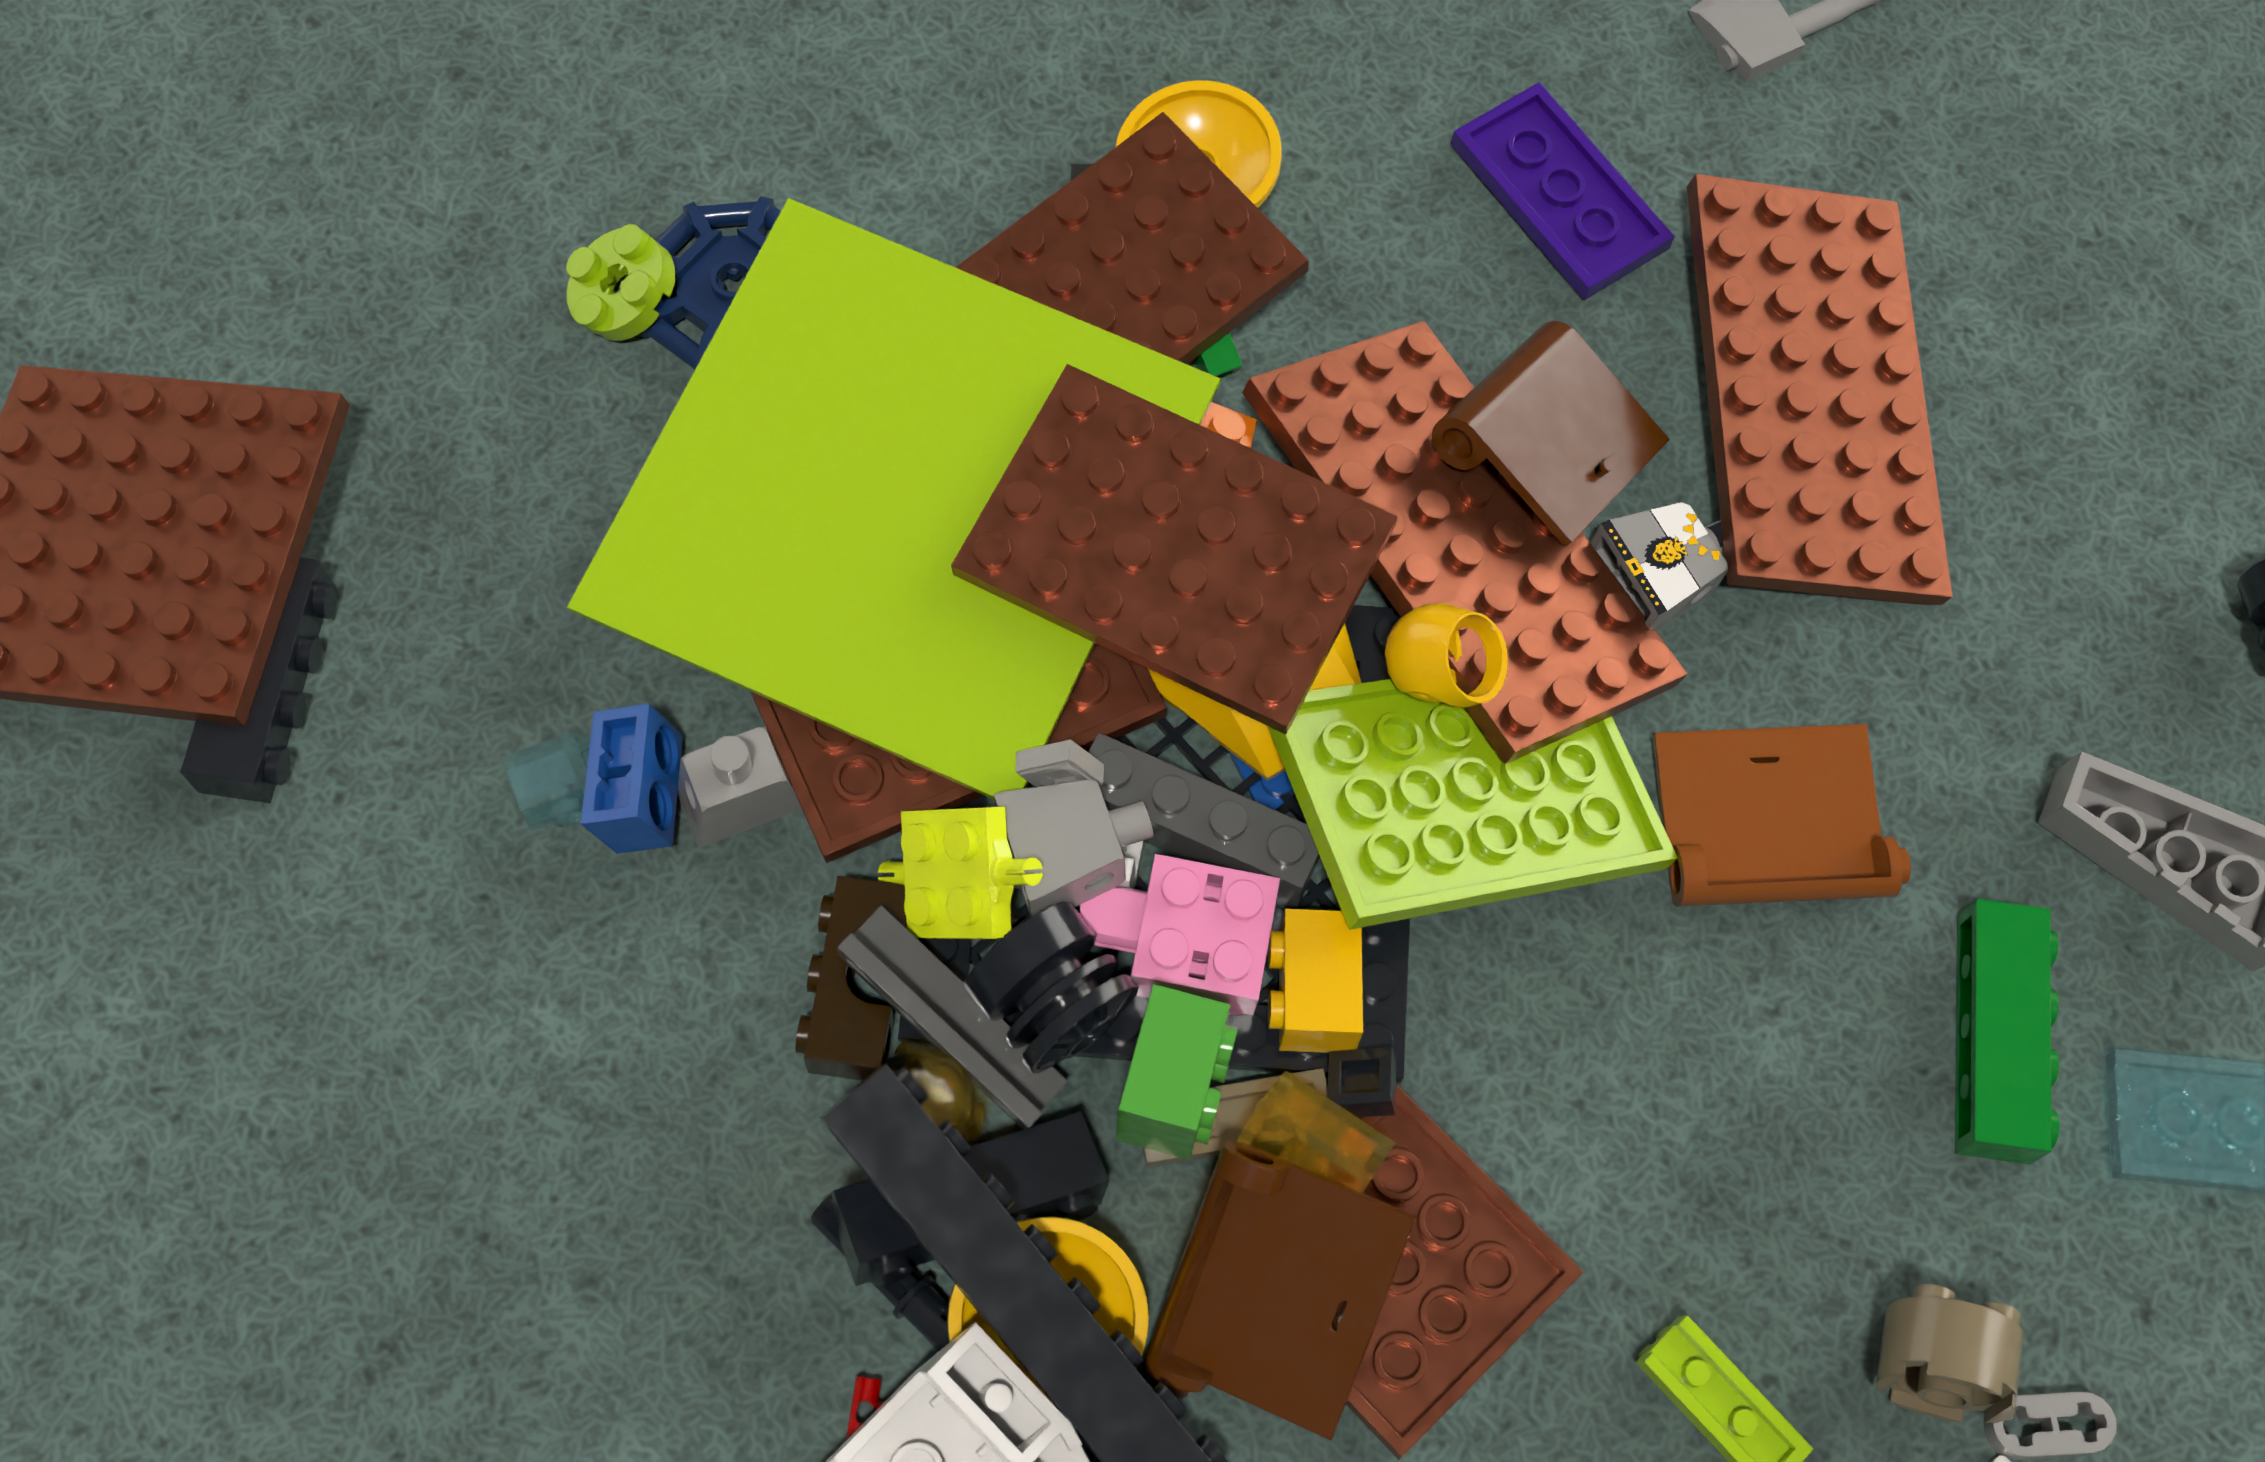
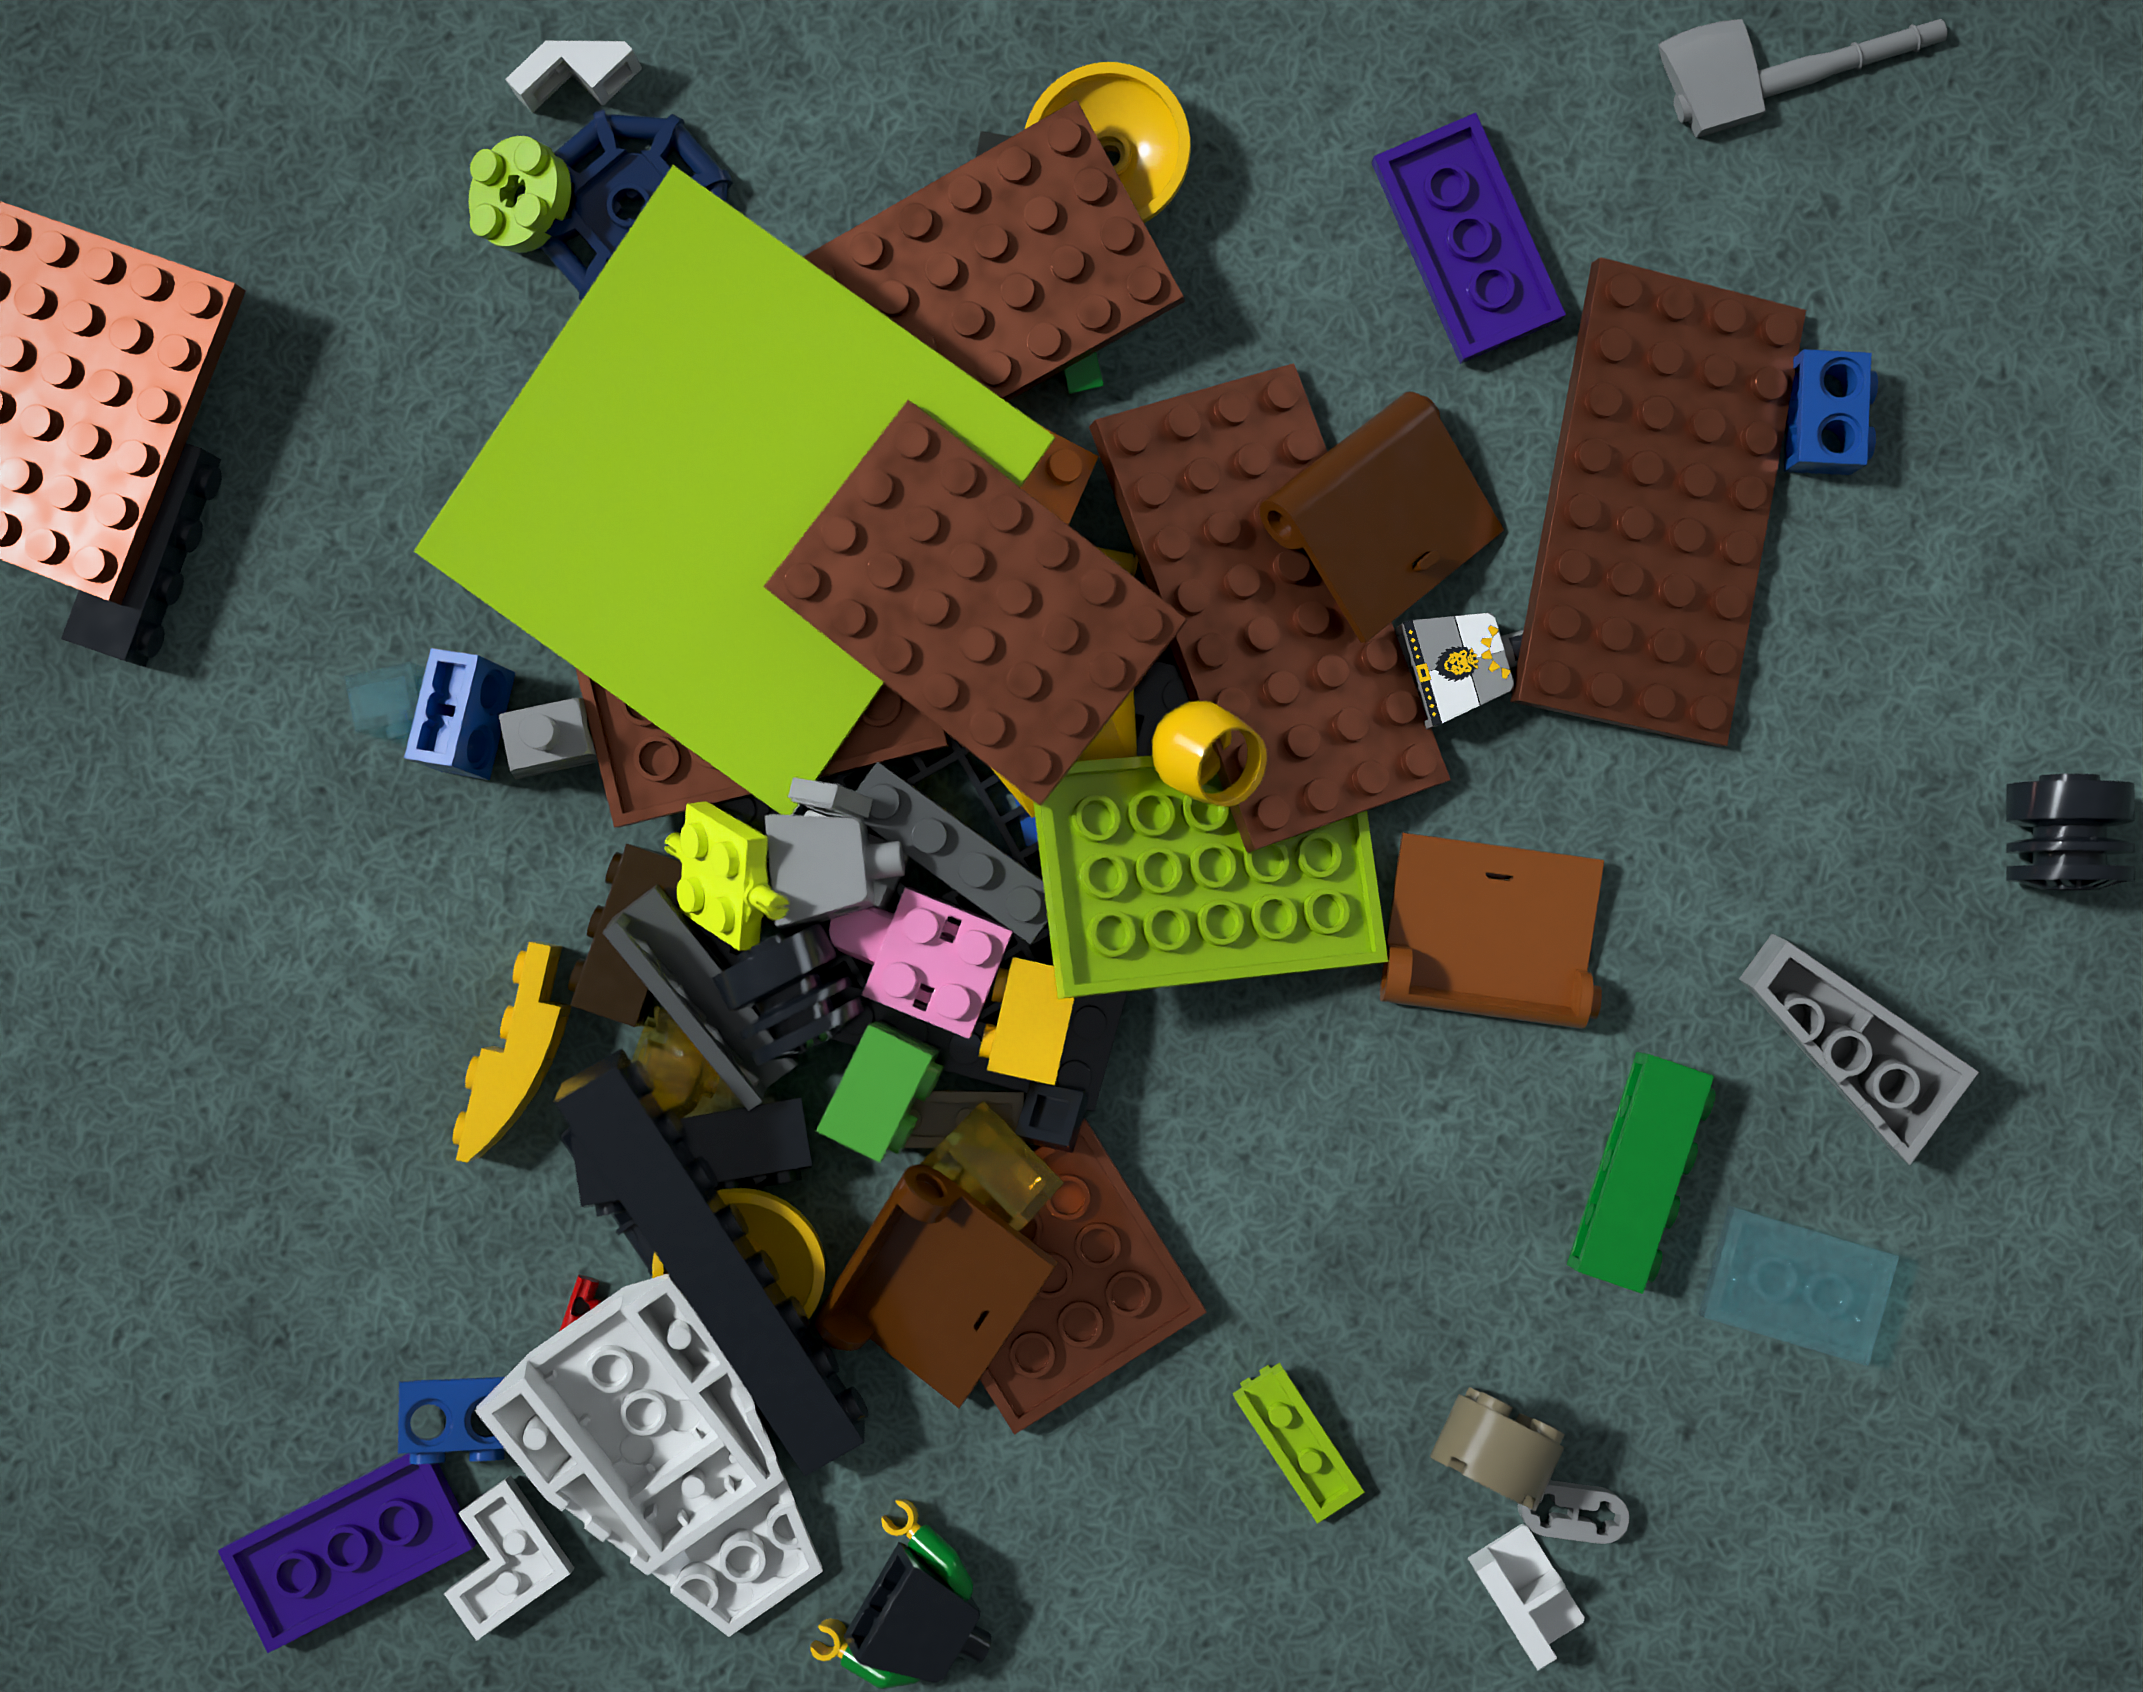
camera: 20 degrees right, 20 degrees up
(675, 164) = (596, 65): none -> white slope
(744, 1155) = (509, 1077): none -> yellow slope
(1951, 283) = (1816, 409): none -> blue brick

